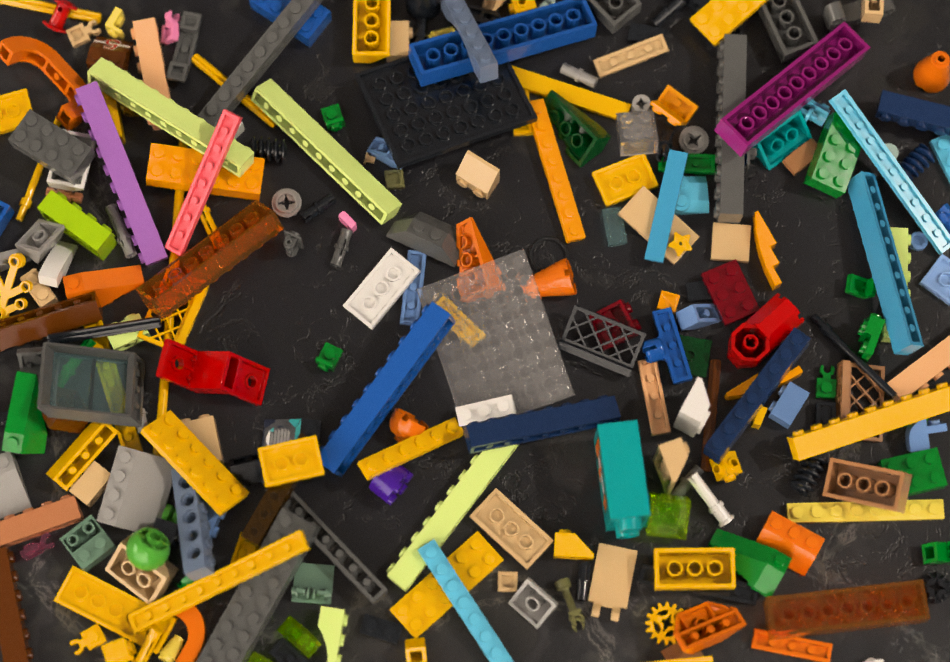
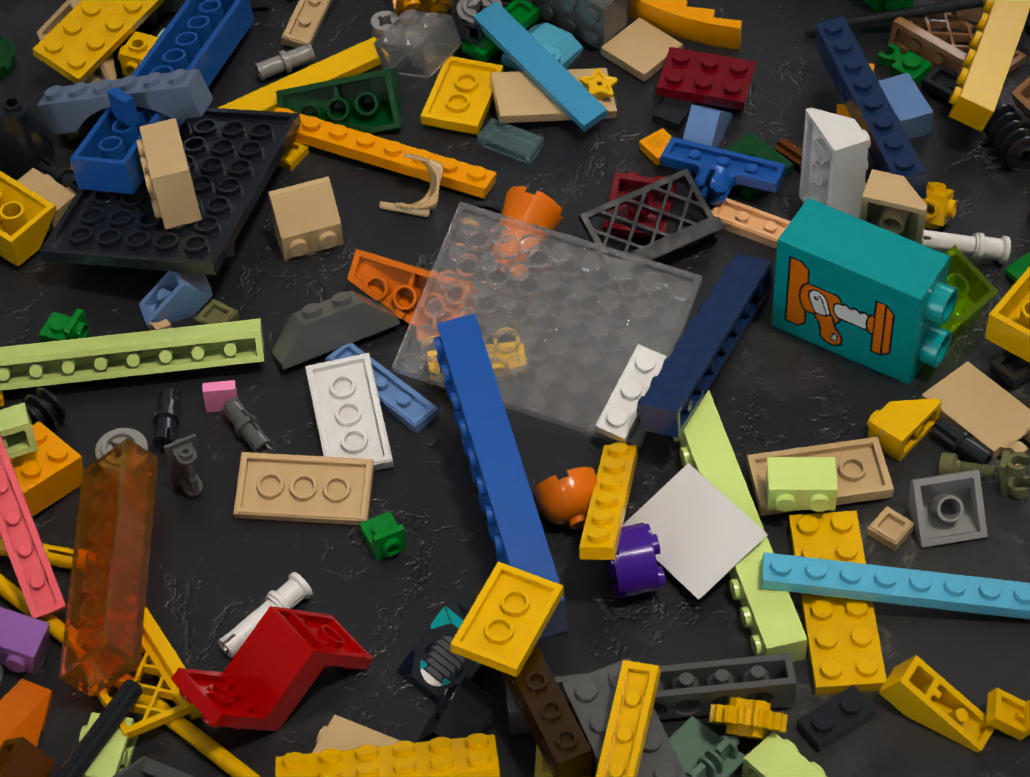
camera: 50 degrees left, 25 degrees down
(256, 342) = (285, 597): none -> white pin
(326, 302) = (304, 488): none -> tan tile
(342, 594) = (748, 718): none -> yellow gear
(431, 495) = (697, 530): none -> white sticker
(435, 98) = (168, 174): none -> tan brick
(456, 42) = (123, 107): none -> blue tile
(491, 527) = (801, 483): none -> yellowish green brick
(539, 218) = (429, 202): none -> tan helmet
(763, 332) = (789, 69): red brick -> none

